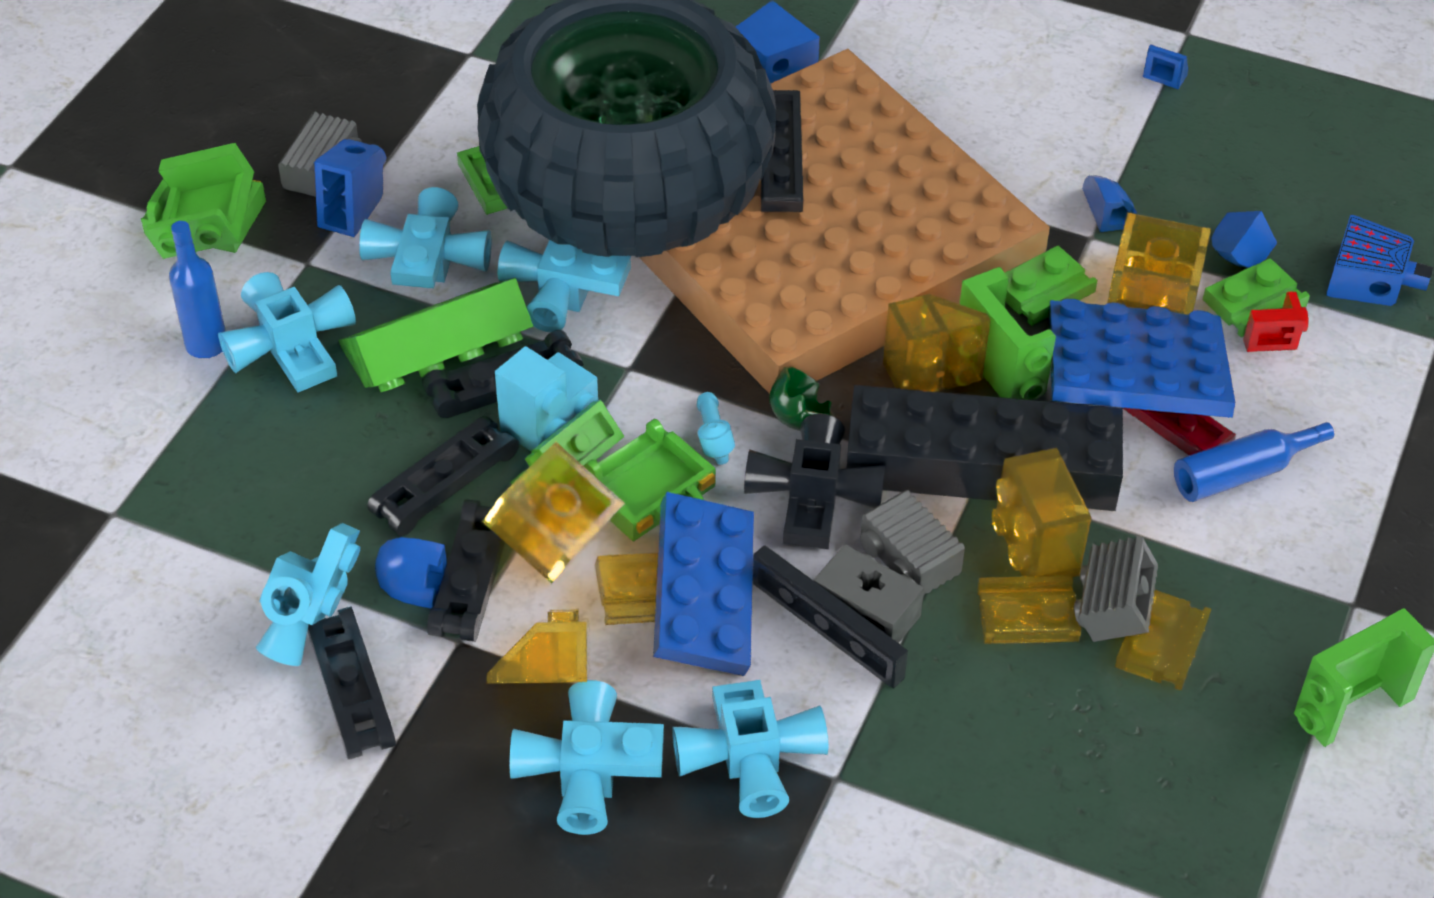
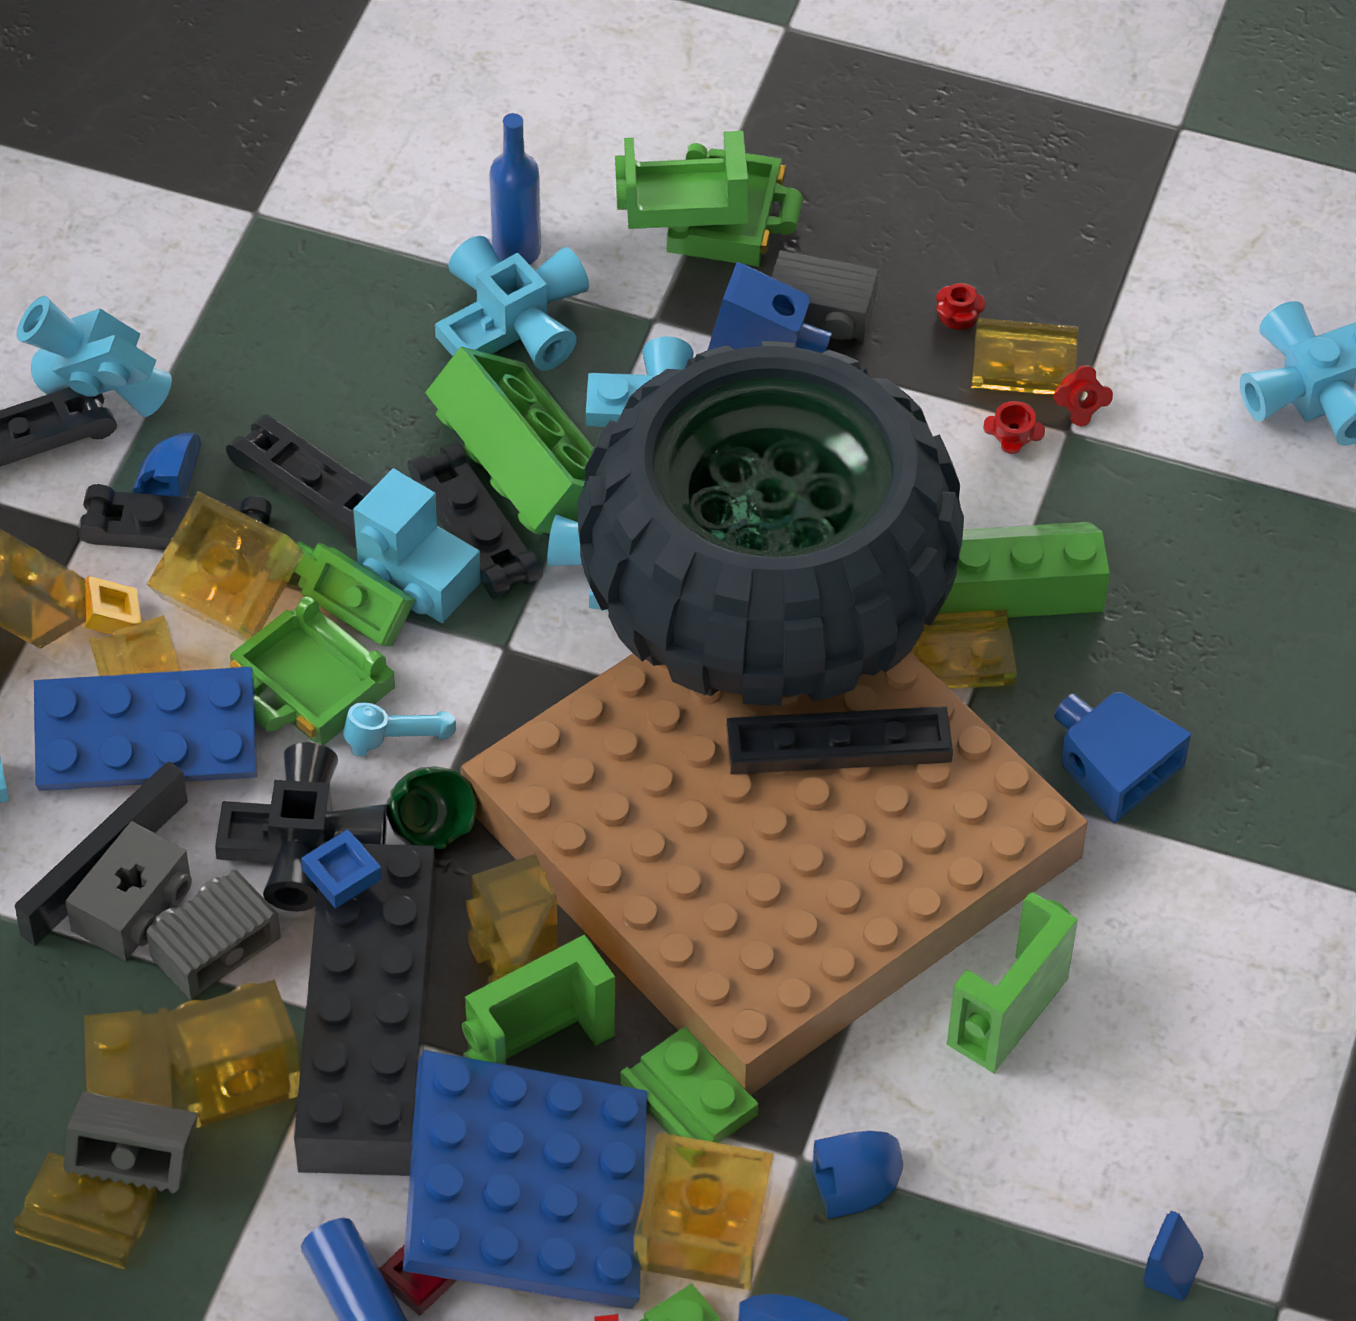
camera: 85 degrees right, 5 degrees up
(342, 91) = (959, 306): none -> red plate
(399, 64) = (1023, 355): none -> clear yellow plate
(449, 33) = (1069, 392): none -> red plate
(466, 72) = (1014, 426): none -> red plate
(573, 599) = (110, 605): none -> yellow plate
(893, 421) = (341, 868): none -> blue plate
(976, 95) = (992, 1019): none -> bright green panel

